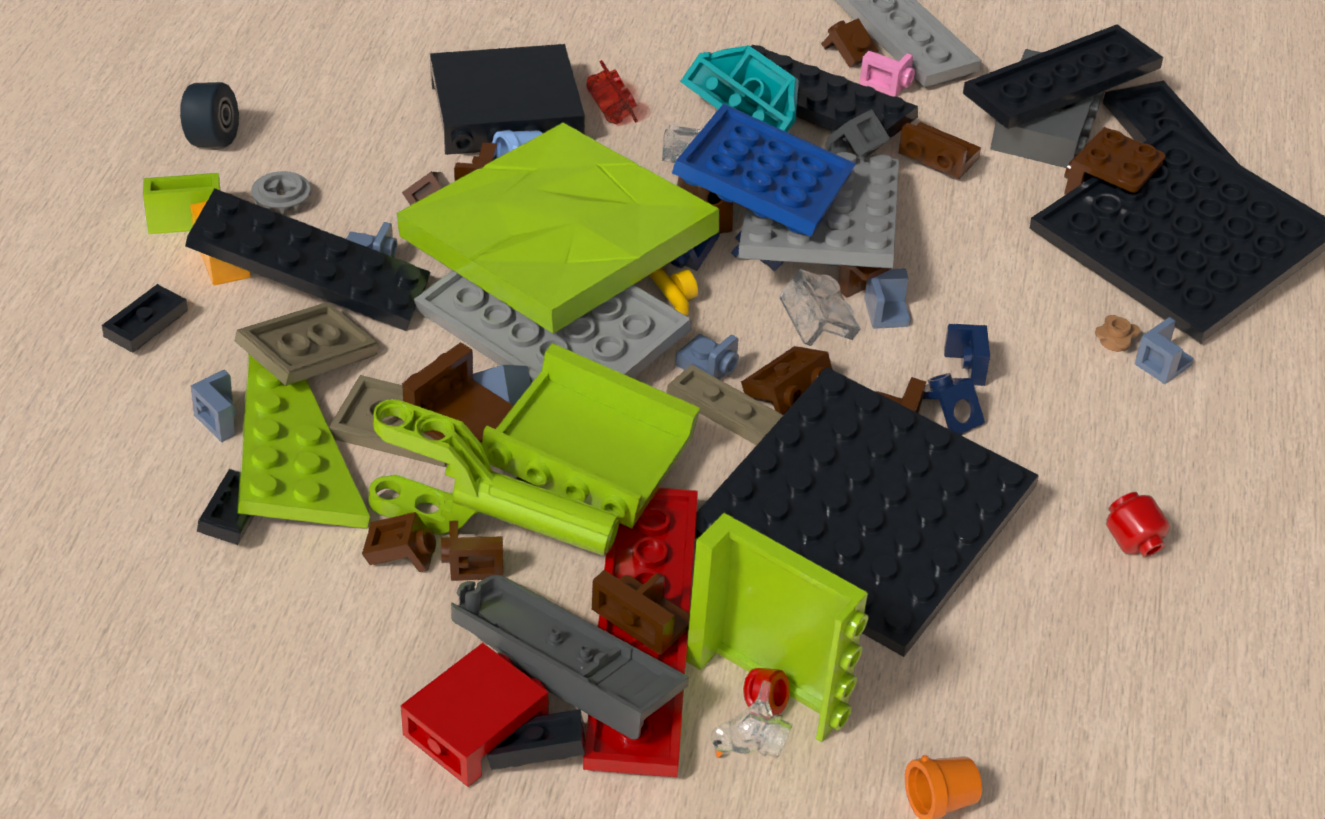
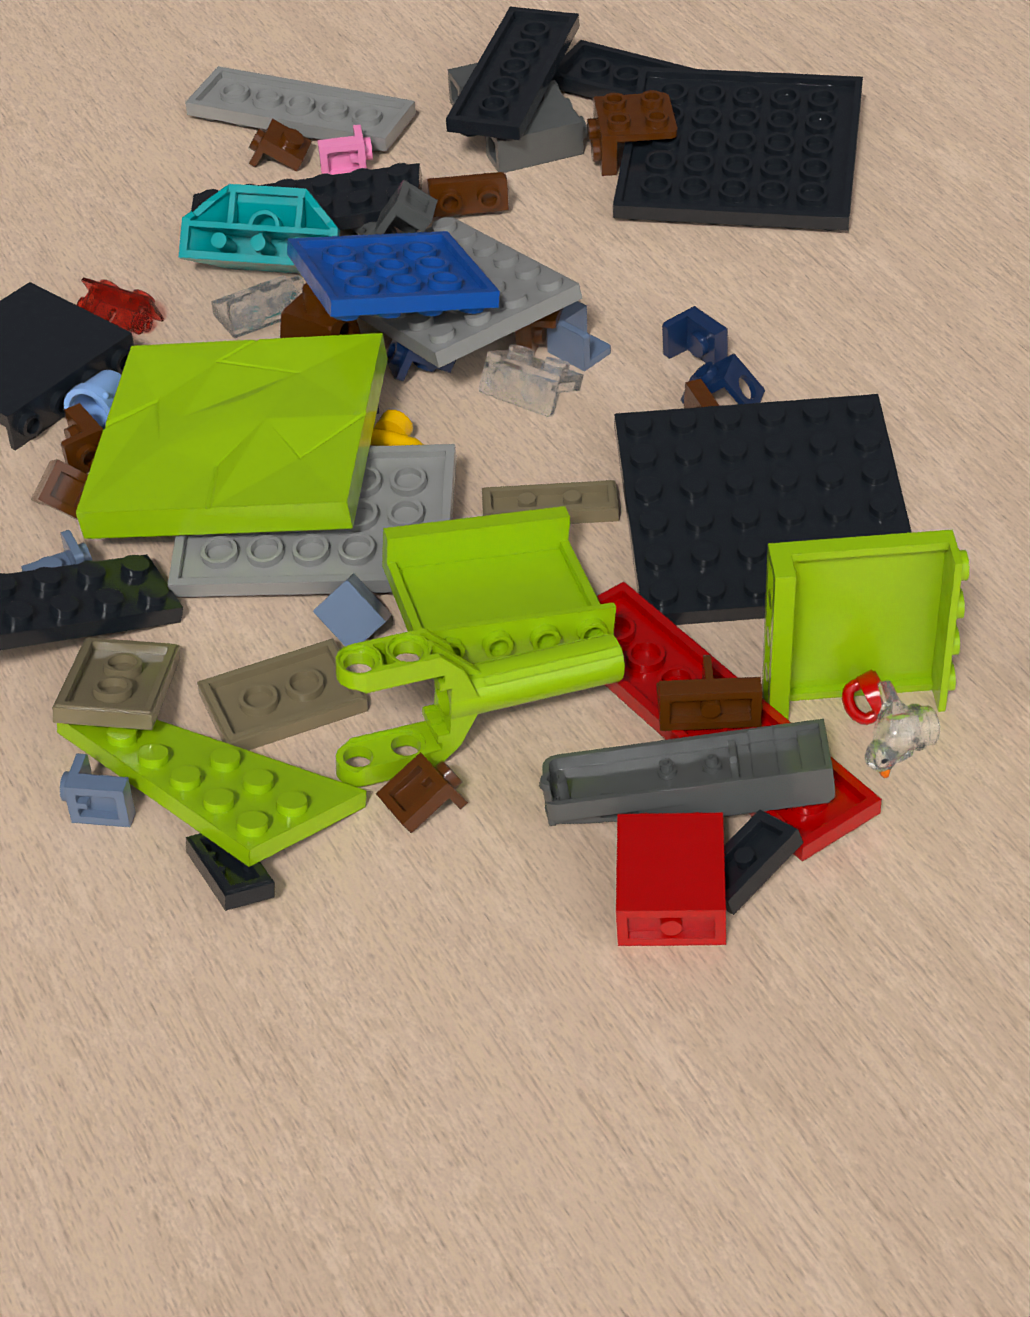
camera: 35 degrees left, 0 degrees up
(449, 389) = (319, 637): reddish brown bracket -> none
(471, 556) = (502, 761): reddish brown bracket -> none
(710, 356) = (487, 472): sand blue bracket -> none
(786, 377) = (580, 446): reddish brown bracket -> none
(1116, 333) = (781, 259): medium nougat plate -> none
(1137, 524) = (978, 390): red head -> none
(1161, 356) = (837, 254): sand blue panel -> none

